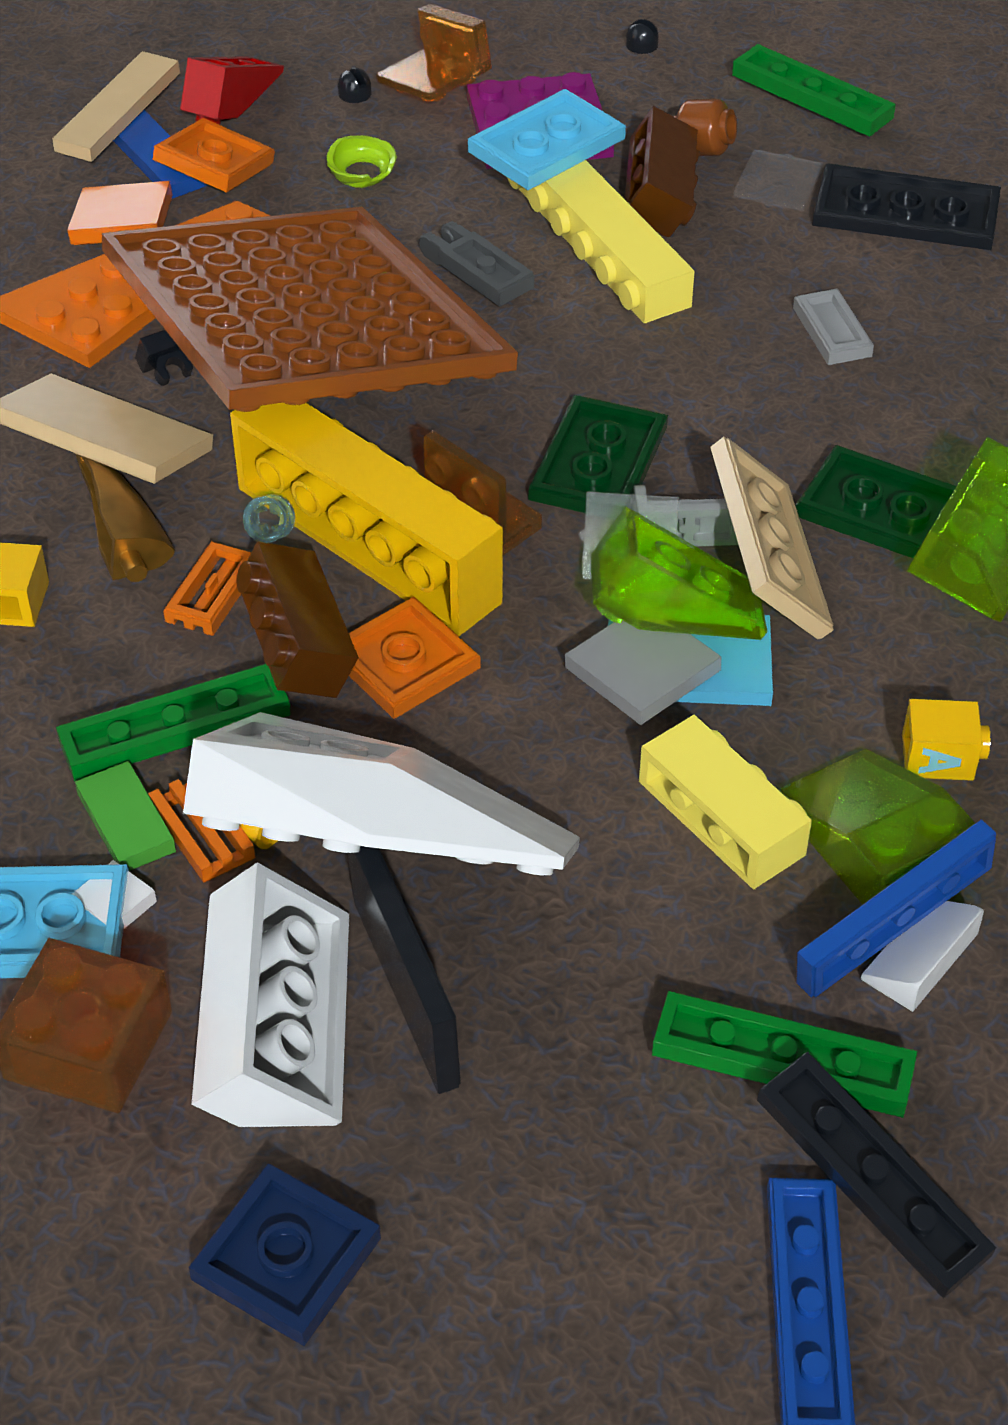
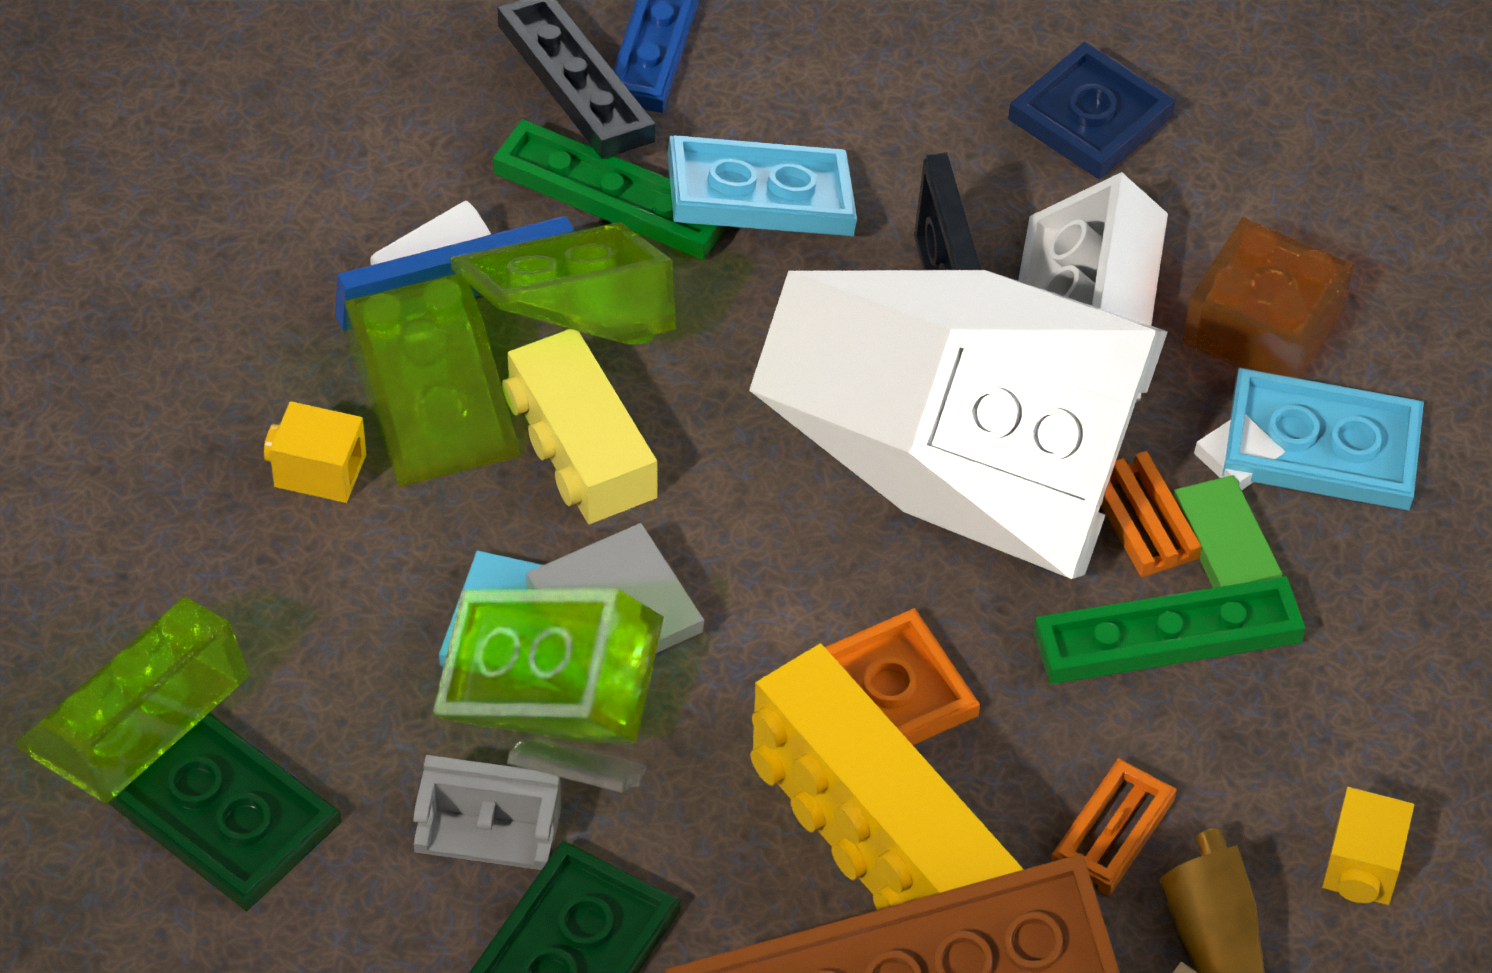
camera: 170 degrees left, 5 degrees up
(296, 620) = (1018, 709): reddish brown brick -> none
(479, 488) = (760, 863): clear orange bracket -> none
(629, 1067) = (761, 186): none -> medium azure tile
(771, 539) = (404, 723): tan tile -> none
(781, 867) = (583, 280): none -> clear neon green slope

